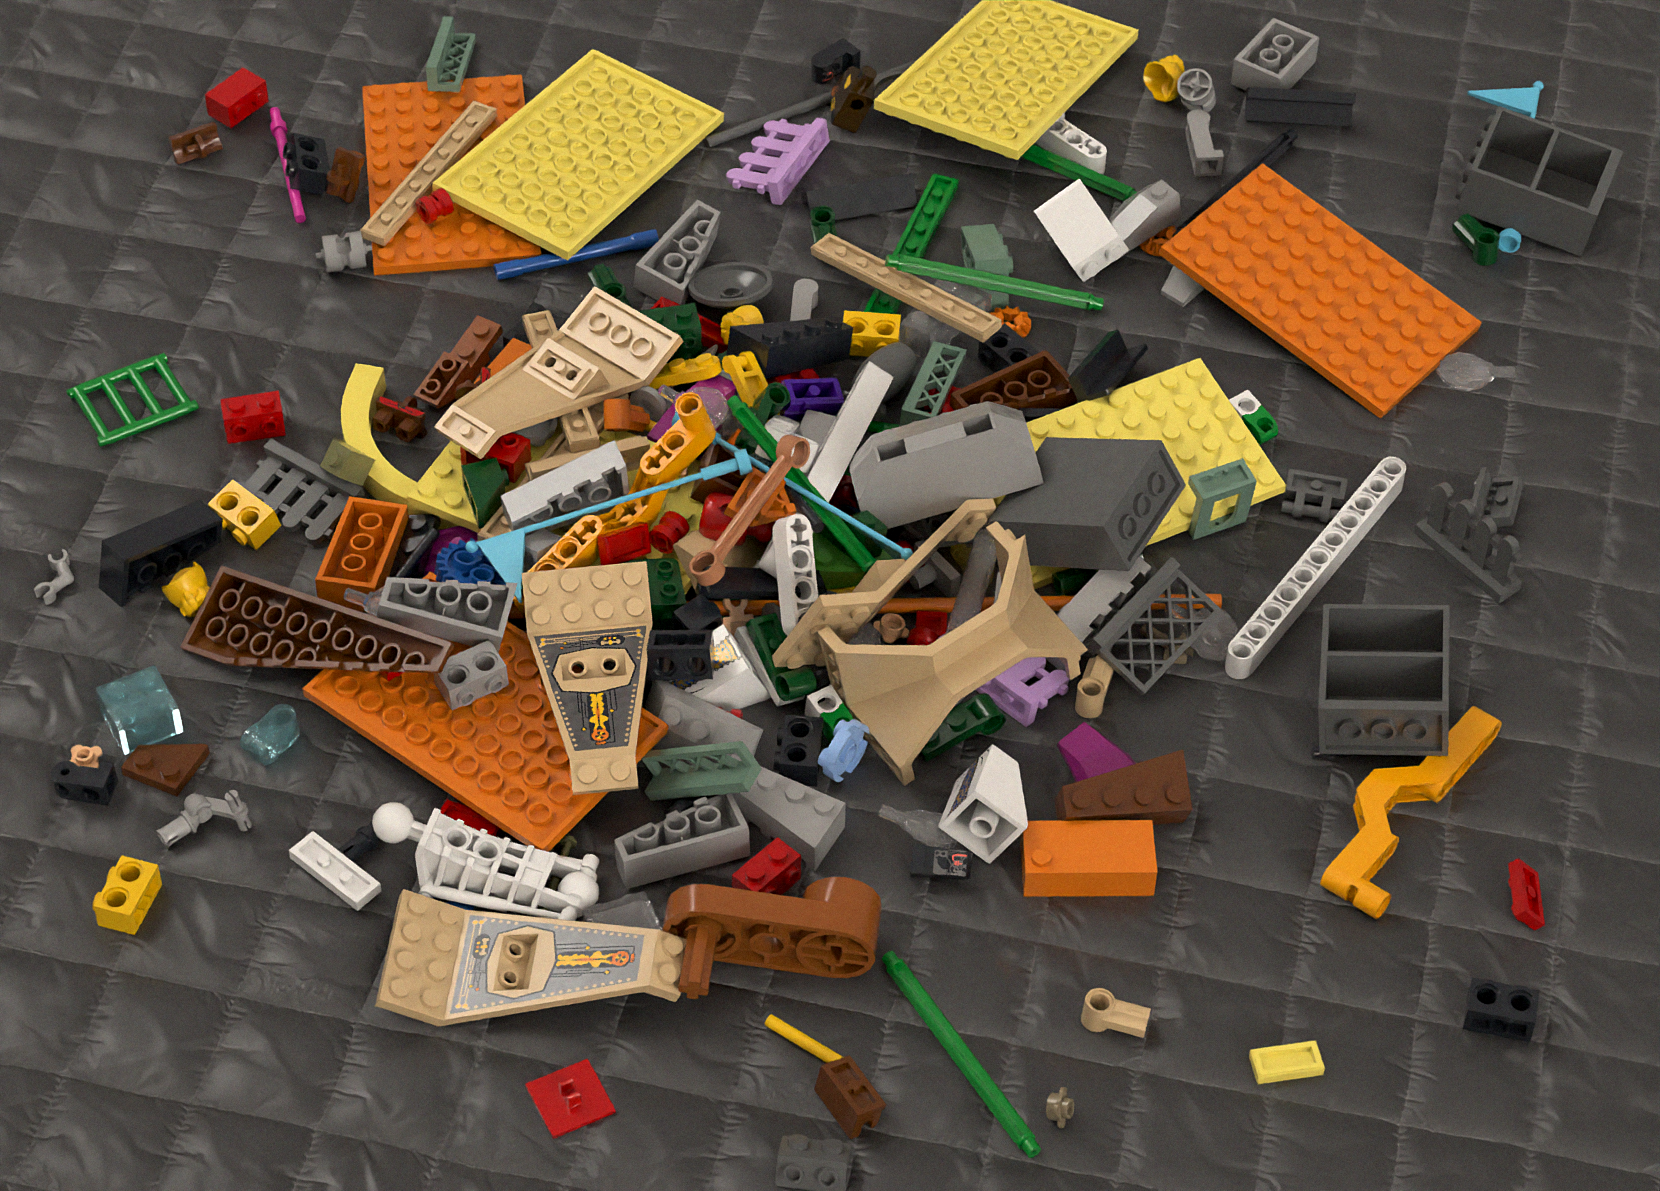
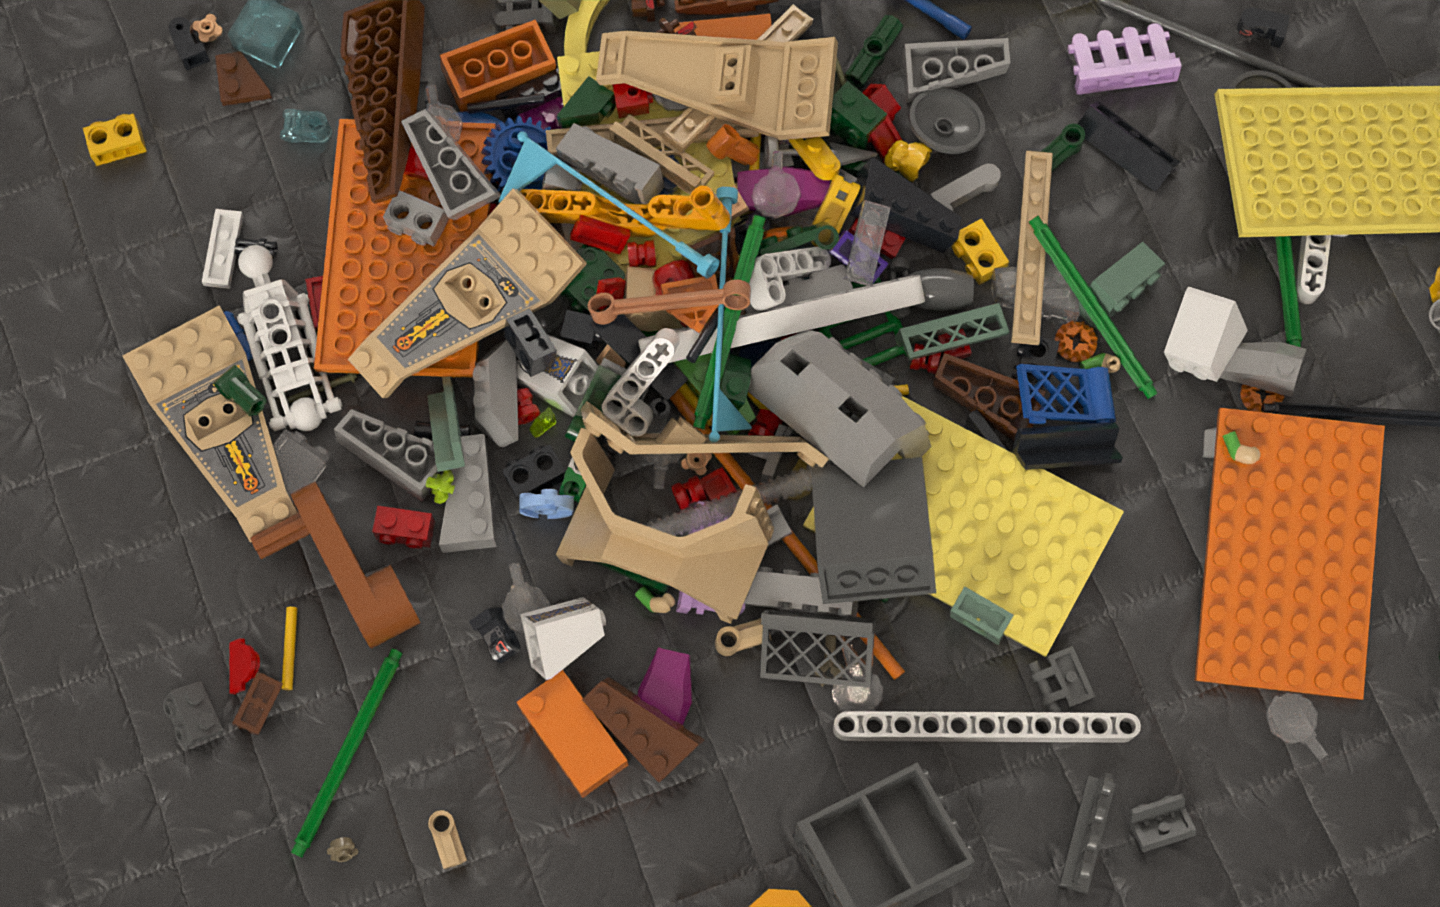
camera: 55 degrees right, 25 degrees up
(199, 810) = (213, 129): light grey pin -> none
(501, 921) = (236, 386): none -> dark green piece
(570, 1098) = (147, 524): red piece -> none
(683, 576) = (613, 286): none -> red plate
(754, 710) = (543, 423): none -> clear neon green tile
(758, 812) = (441, 486): none -> lime plant
(797, 1087) = (243, 665): none -> red piece
(810, 370) = (867, 243): none -> clear plate
(852, 97) = (1227, 67): dark brown torso -> none
(918, 233) = (1115, 215): green tile -> none
(1008, 733) = (653, 603): none -> tan arm
(1044, 316) = (1102, 360): none -> arm
(1059, 340) = (1093, 394): none -> blue piece
(1203, 156) = (1414, 344): light grey leg -> none
(1211, 253) = (1240, 452): none -> arm
(1255, 417) = (1106, 585): green leg -> none

